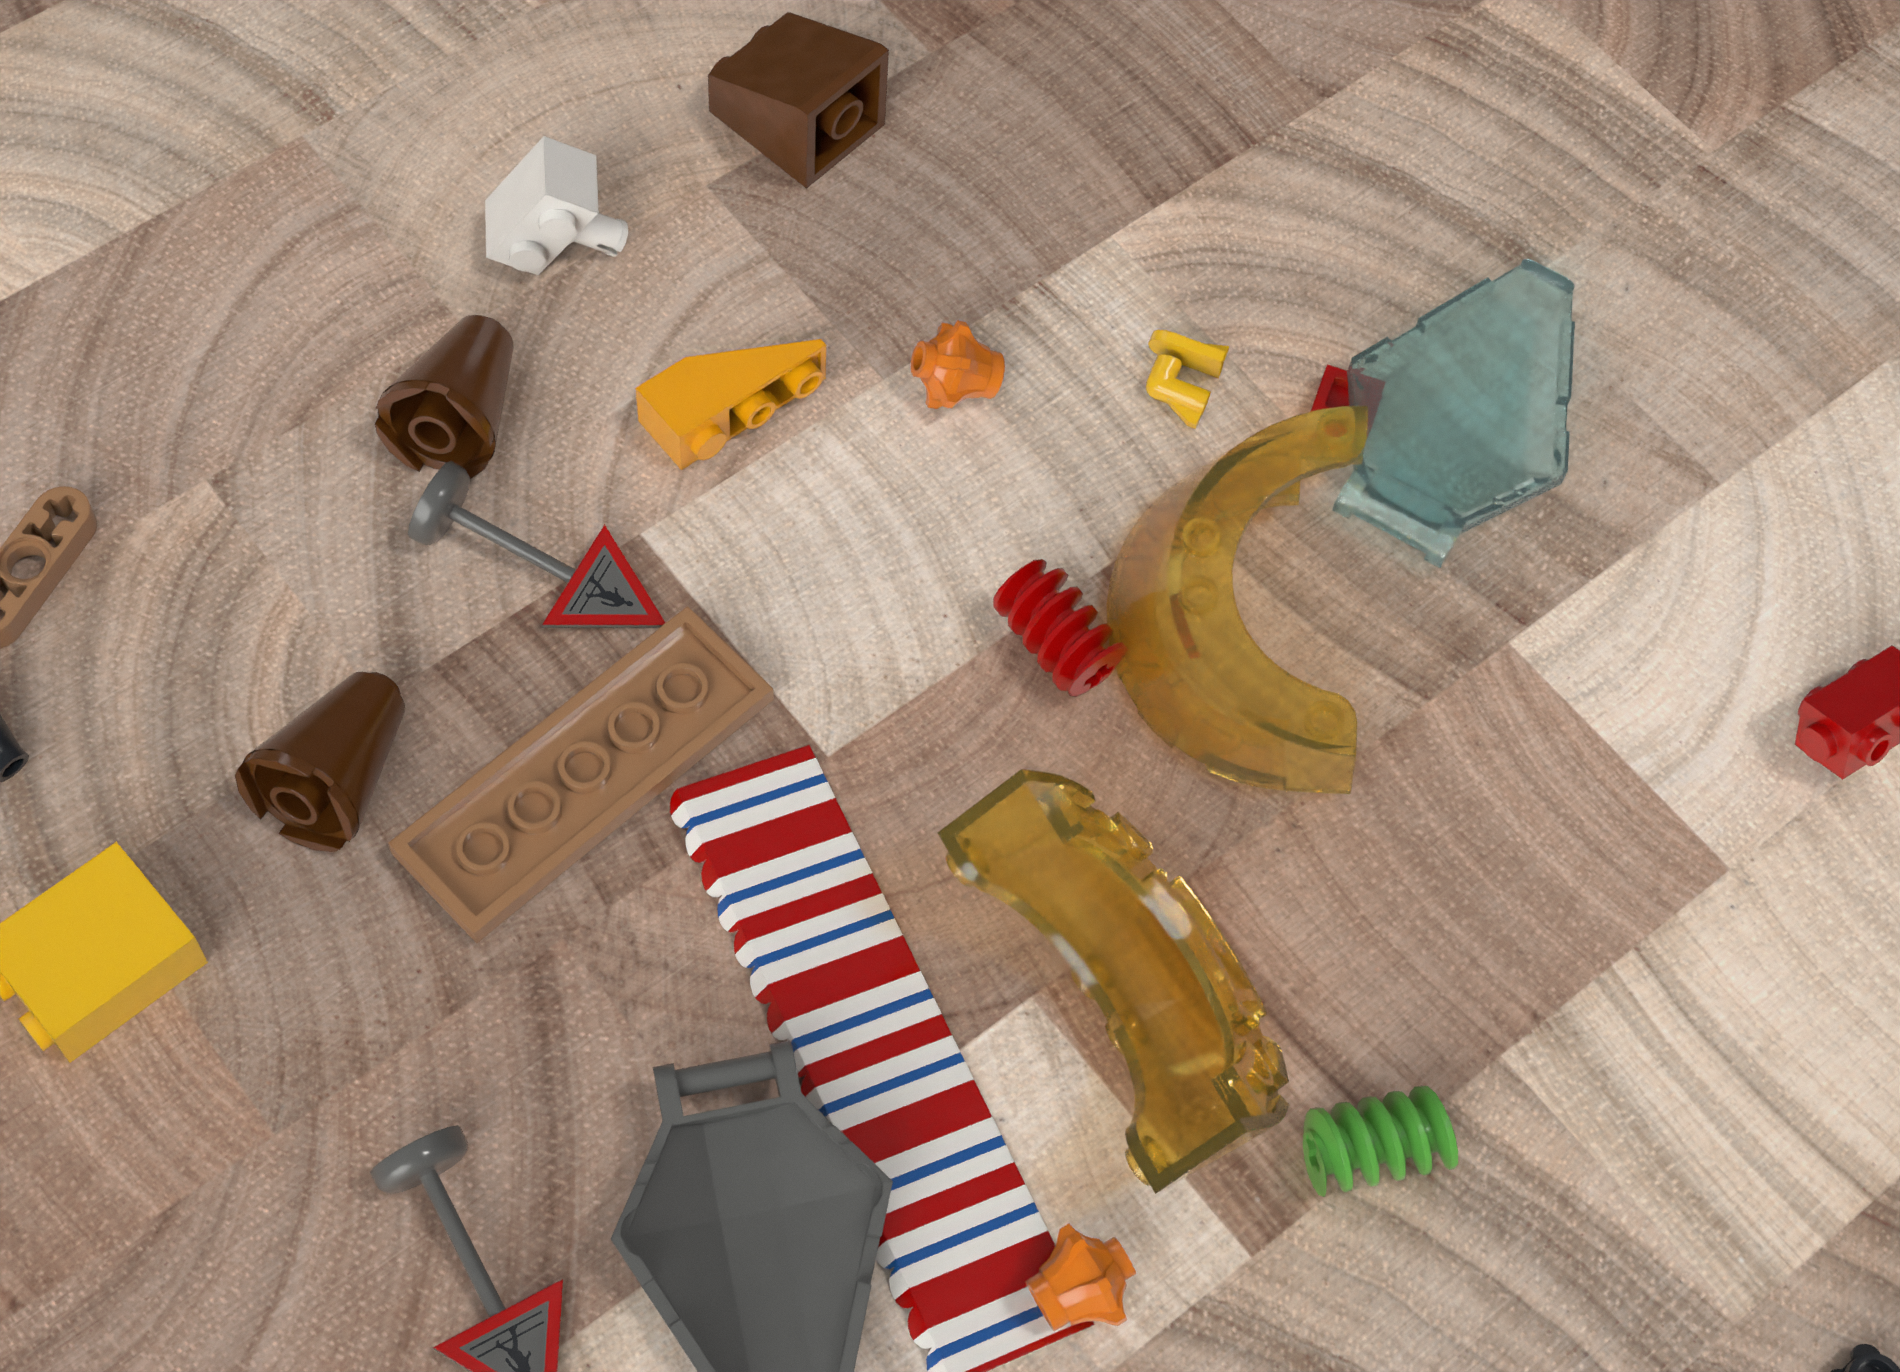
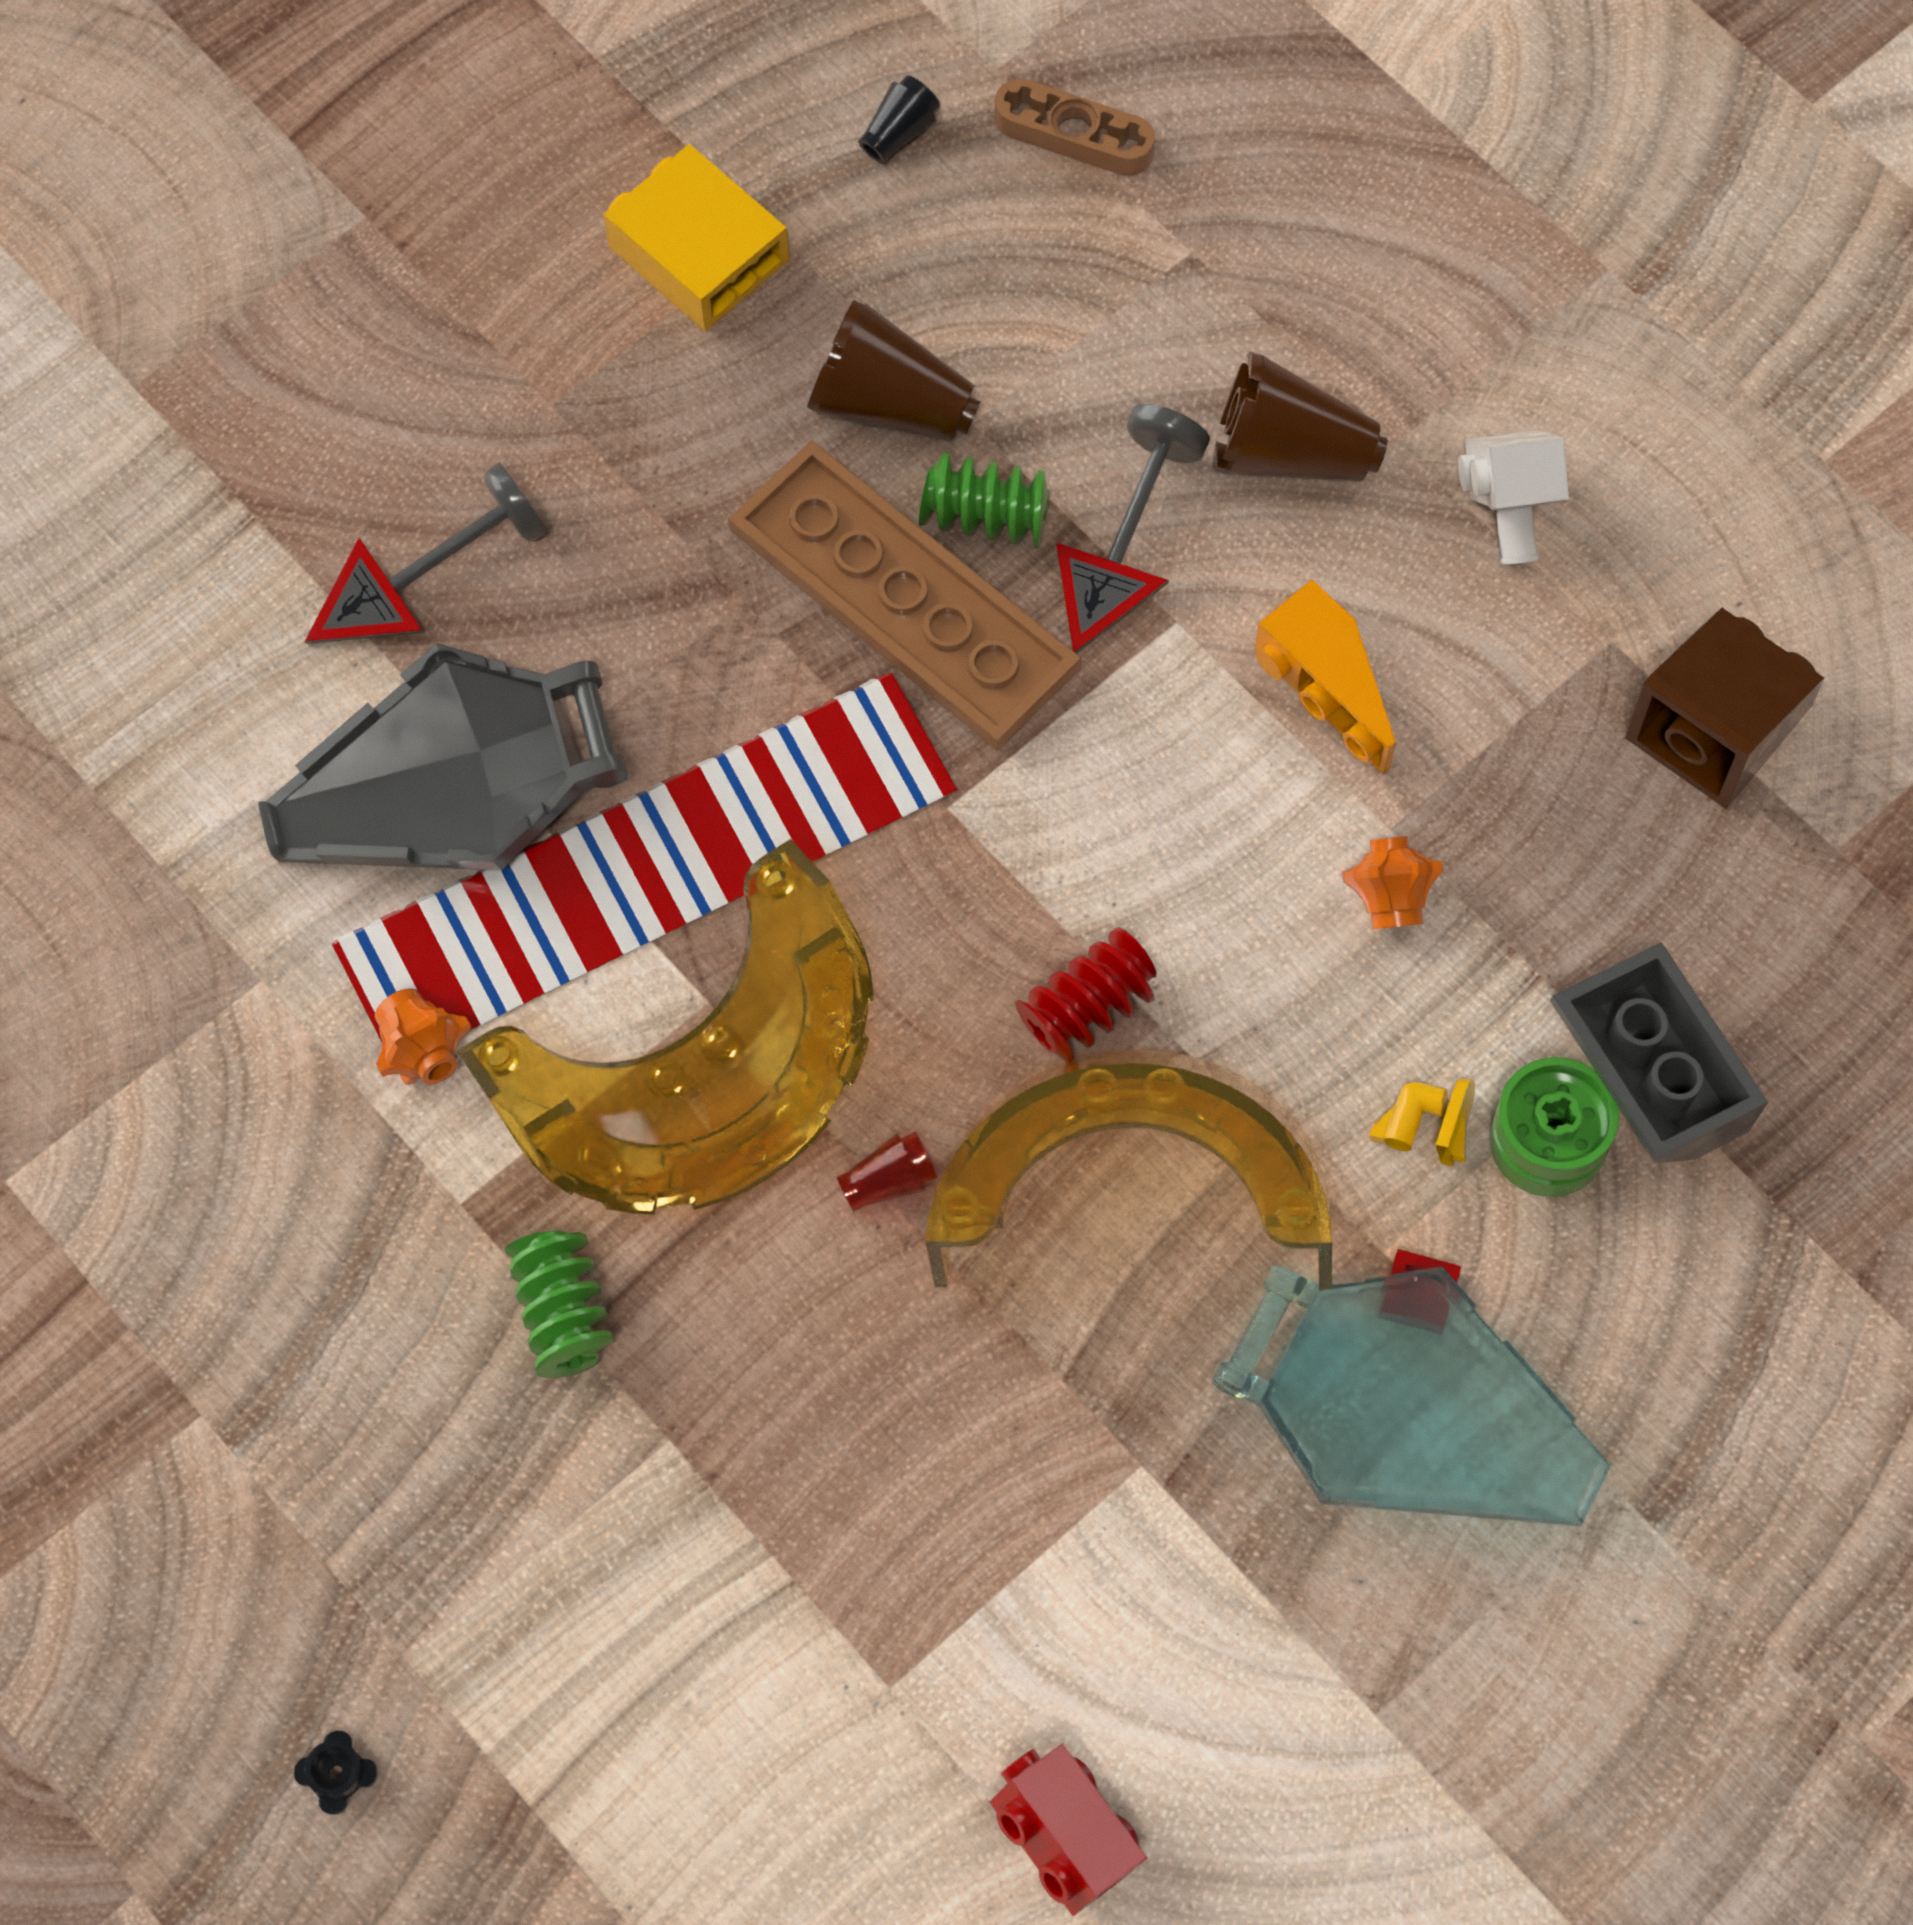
camera: 95 degrees right, 5 degrees up
(488, 678) = (985, 499): none -> bright green piece
(1146, 174) = (1661, 1056): none -> dark grey slope
(1203, 273) = (1559, 1095): none -> bright green wheel
(1234, 825) = (889, 1172): none -> clear red cone

